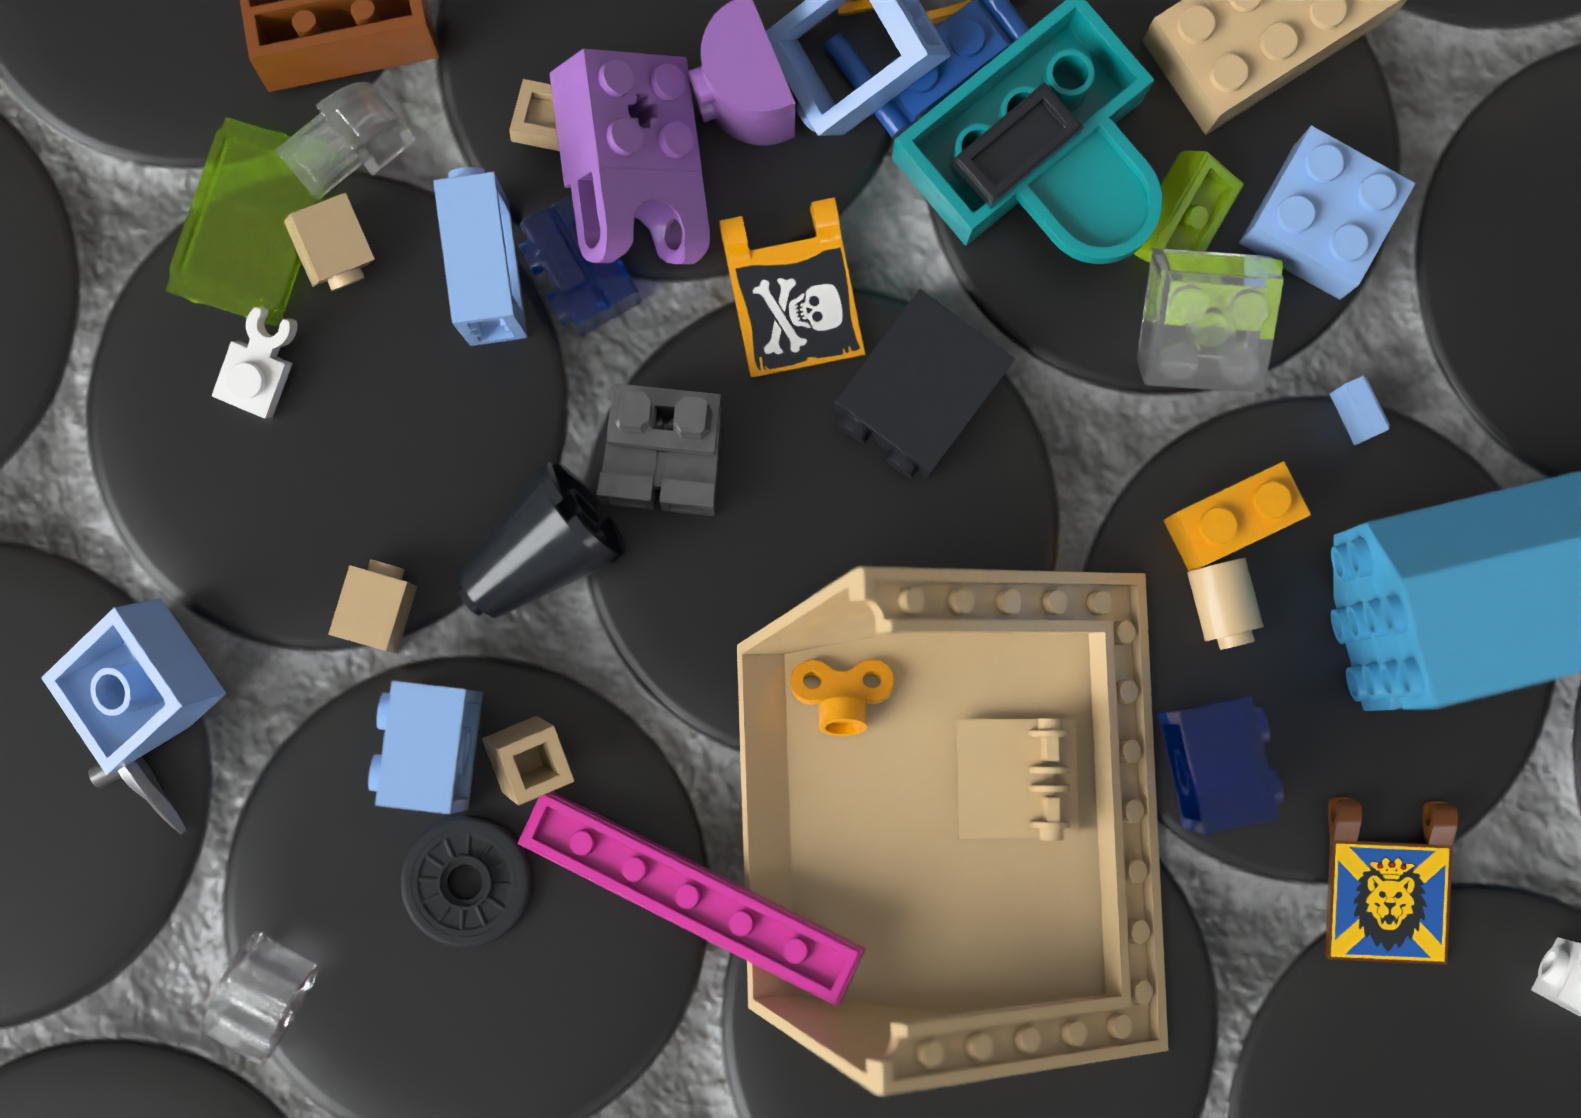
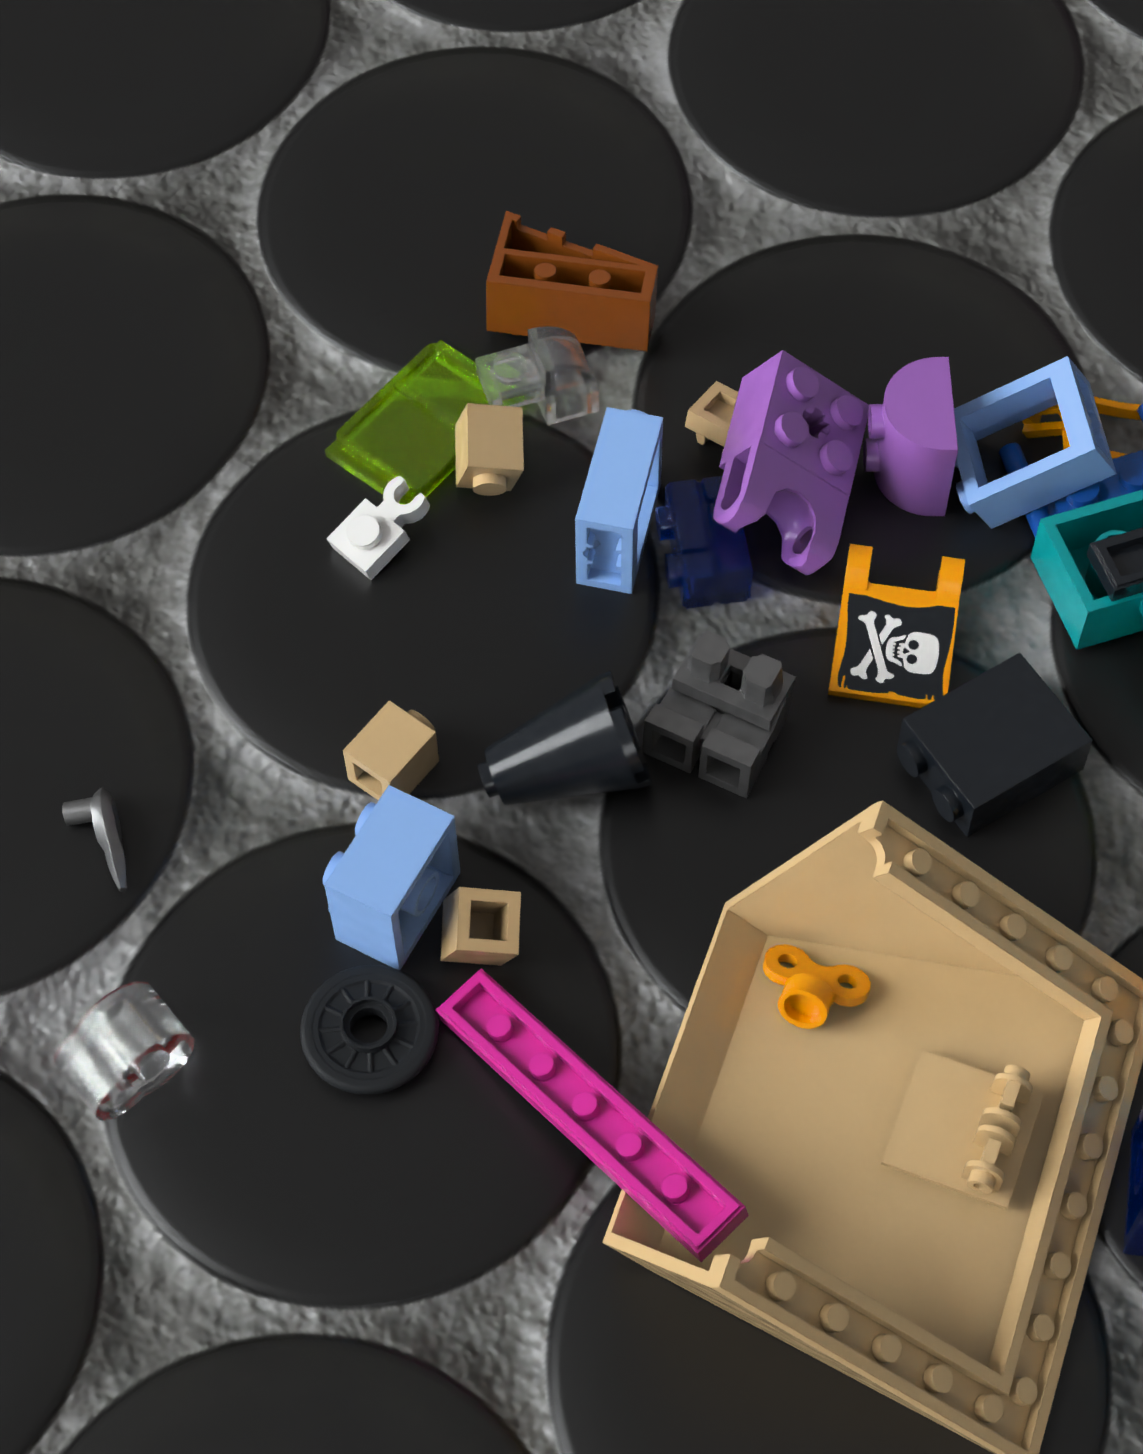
camera: 25 degrees right, 25 degrees down
(132, 683) = (143, 736): light blue slope -> none

